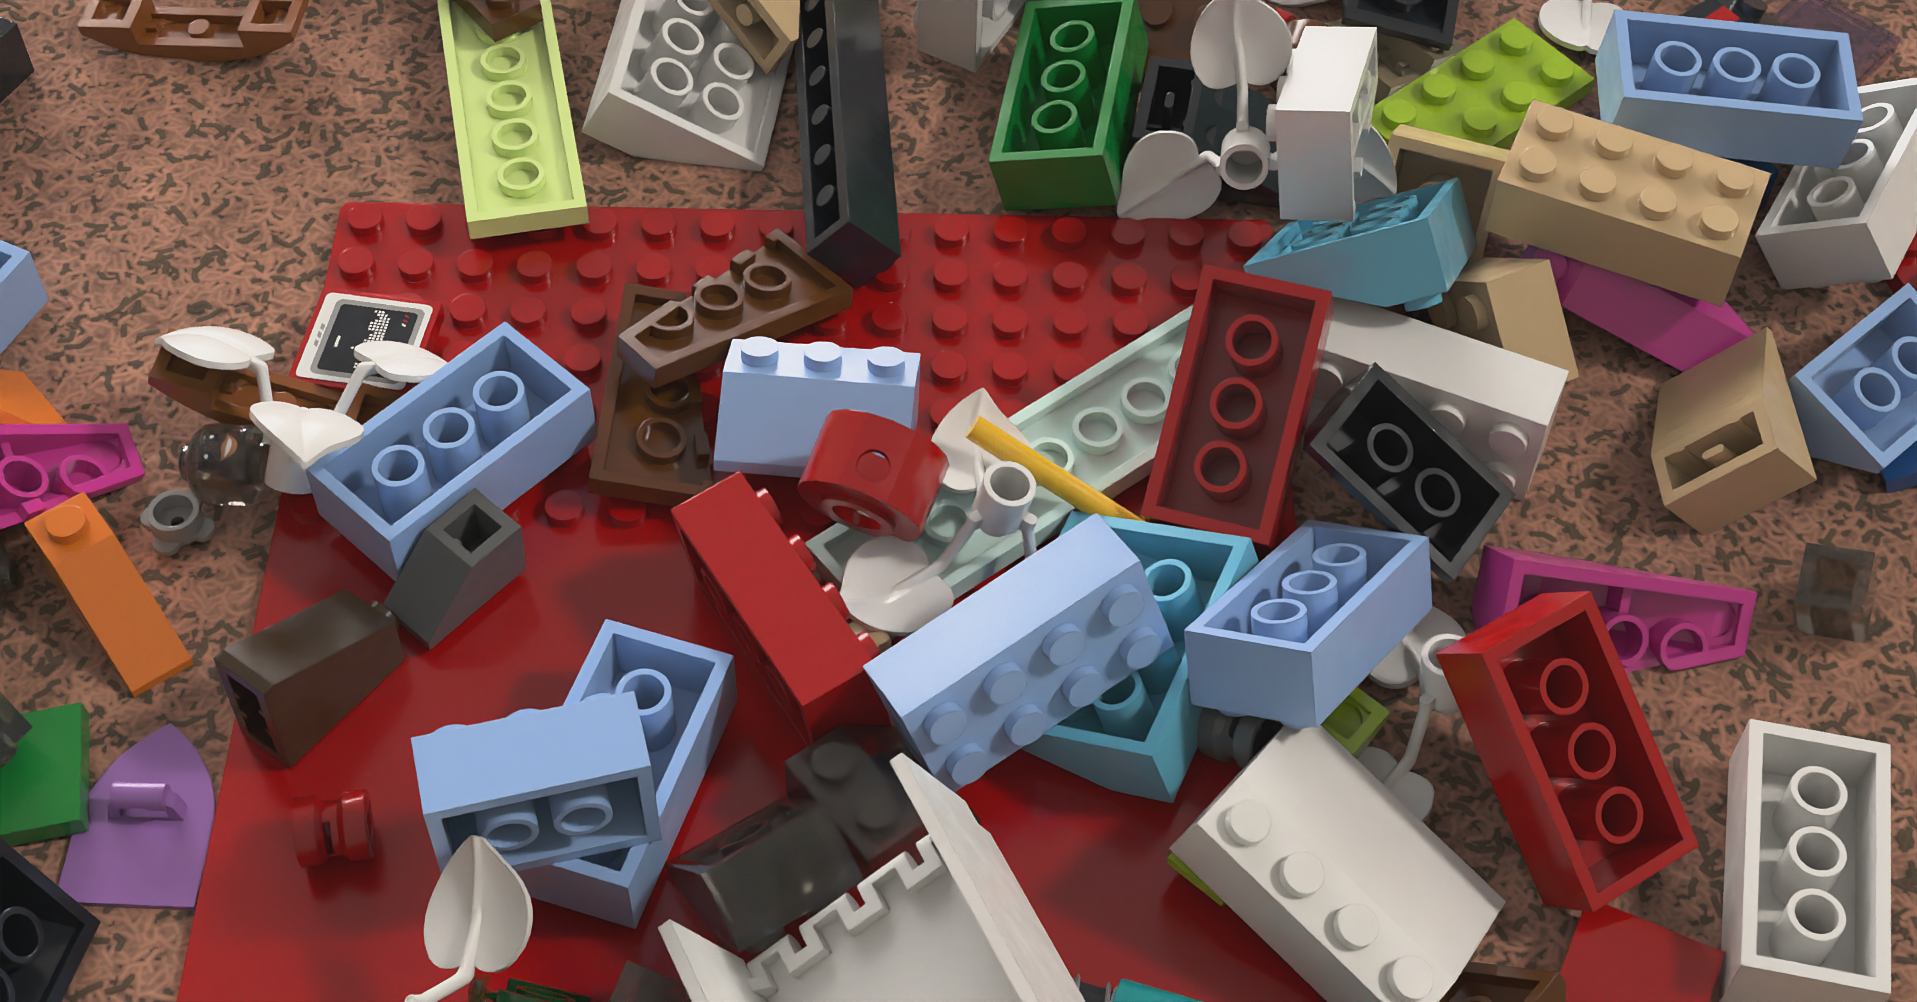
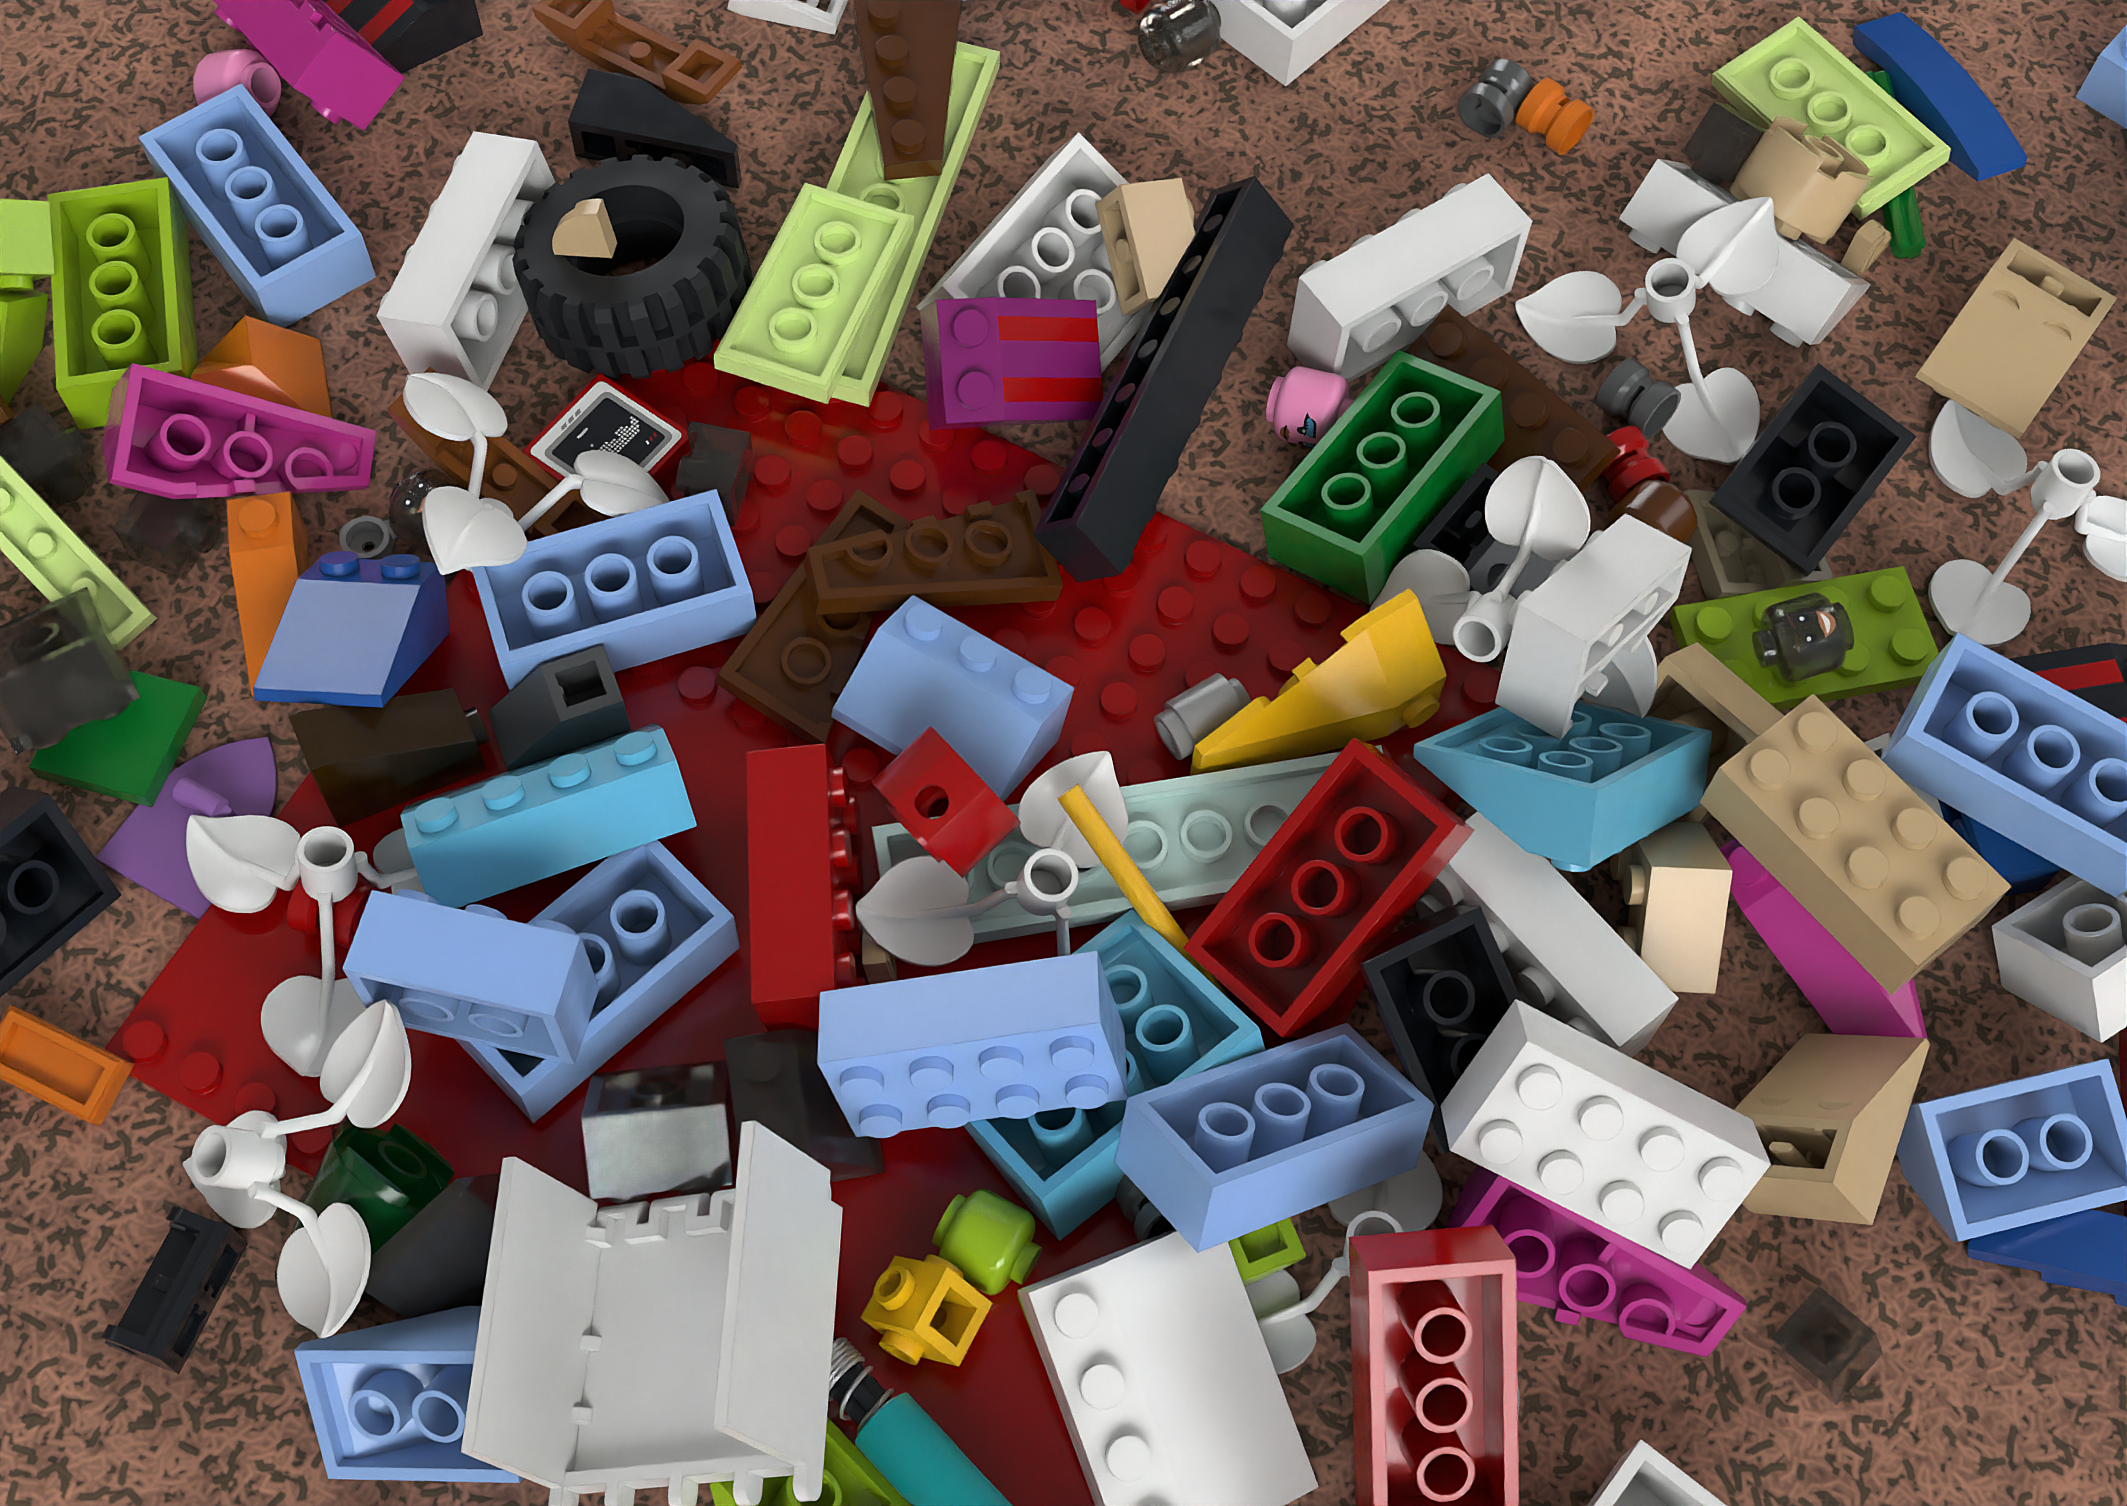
camera: 25 degrees right, 10 degrees up
(151, 233) = (458, 285): none -> white brick
(220, 575) = (355, 631): none -> slope
(224, 827) = (241, 867): none -> white plant
(248, 84) = (631, 117): none -> black slope
(261, 156) = (585, 231): none -> tan tile
(308, 186) = (647, 316): none -> black tyre
(476, 308) = (718, 461): none -> clear smoke brick
(490, 147) = (814, 293): none -> yellowish green tile
(517, 640) = (547, 817): none -> medium azure slope
(695, 136) = (1010, 361): none -> magenta slope
(971, 81) = (1306, 404): none -> bright pink head
(1036, 342) = (1199, 712): none -> light grey brick
(1098, 905) = (925, 1310): none -> yellow brick
(1113, 829) = (988, 1240): none -> lime head
(1145, 278) = (1363, 691): none -> yellow wedge
(1480, 86) = (1803, 637): none -> clear smoke head
(1575, 498) = (1603, 1135): none -> white brick

